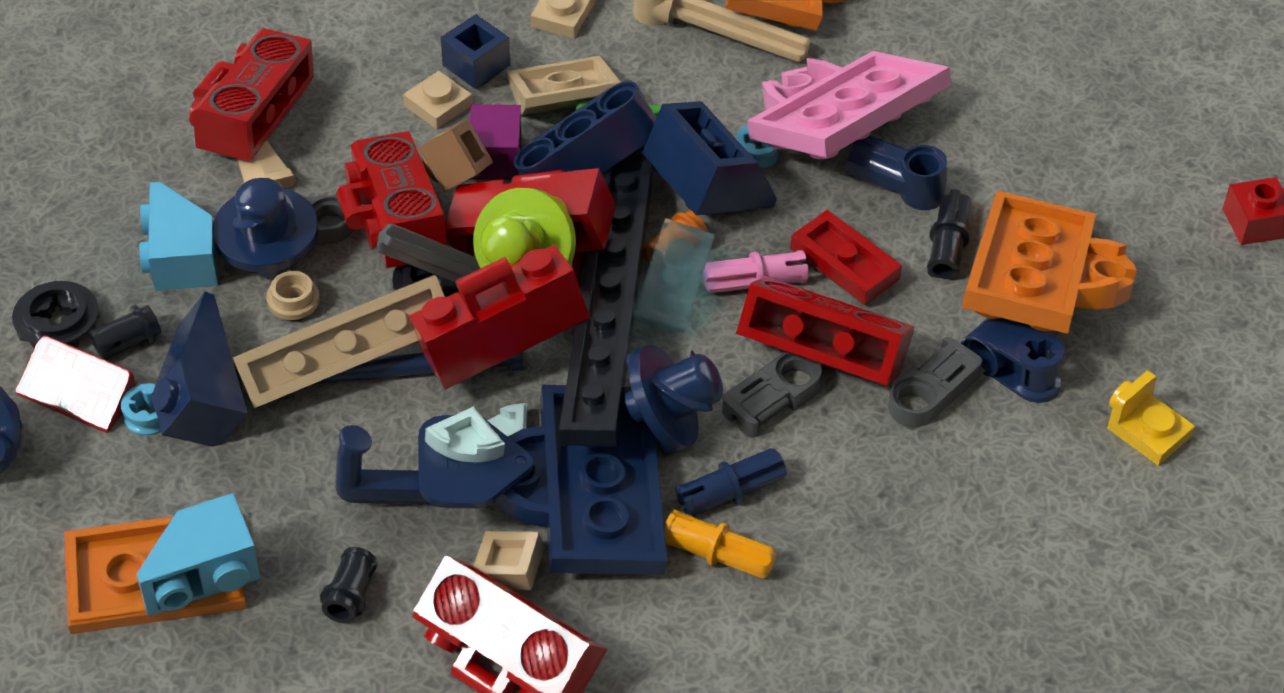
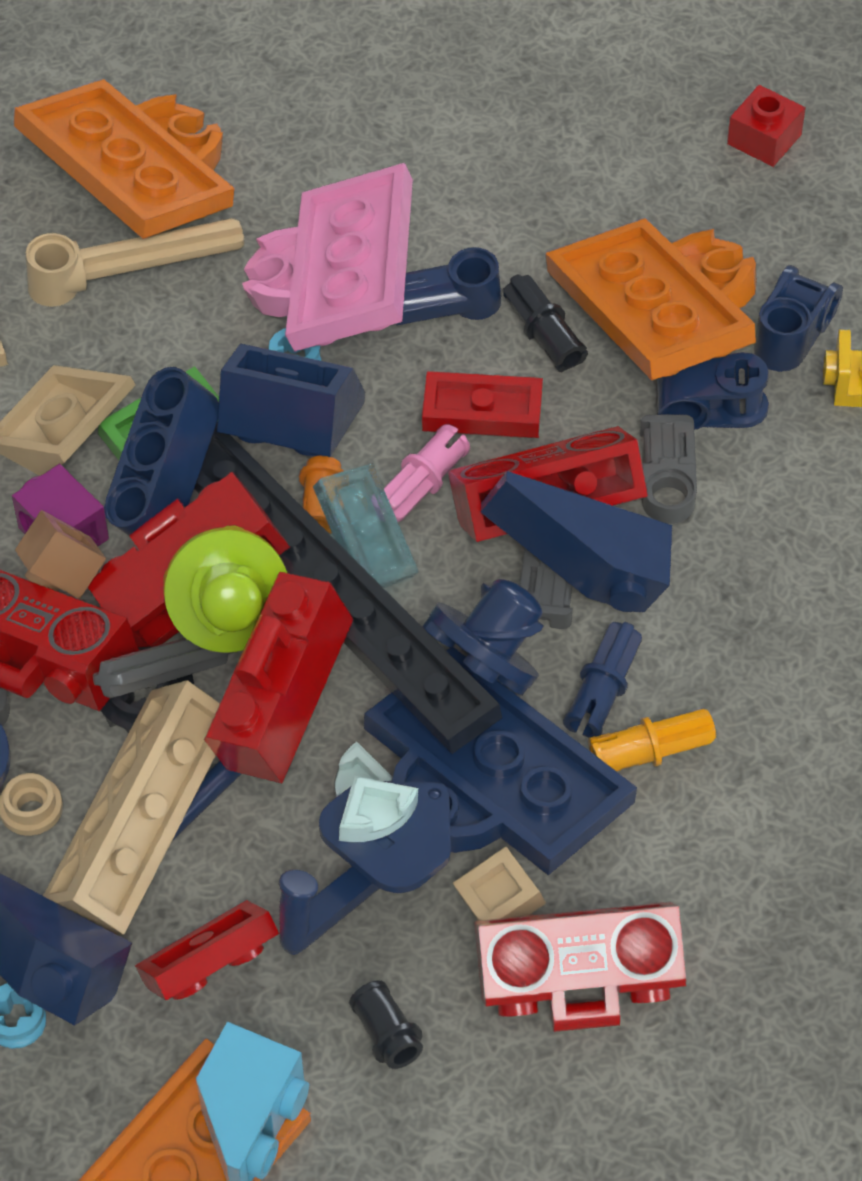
camera: 40 degrees left, 5 degrees up
(270, 454) = (224, 941): none -> red plate
(807, 387) = (588, 543): none -> dark blue slope
(1132, 344) = (794, 319): none -> dark blue piece

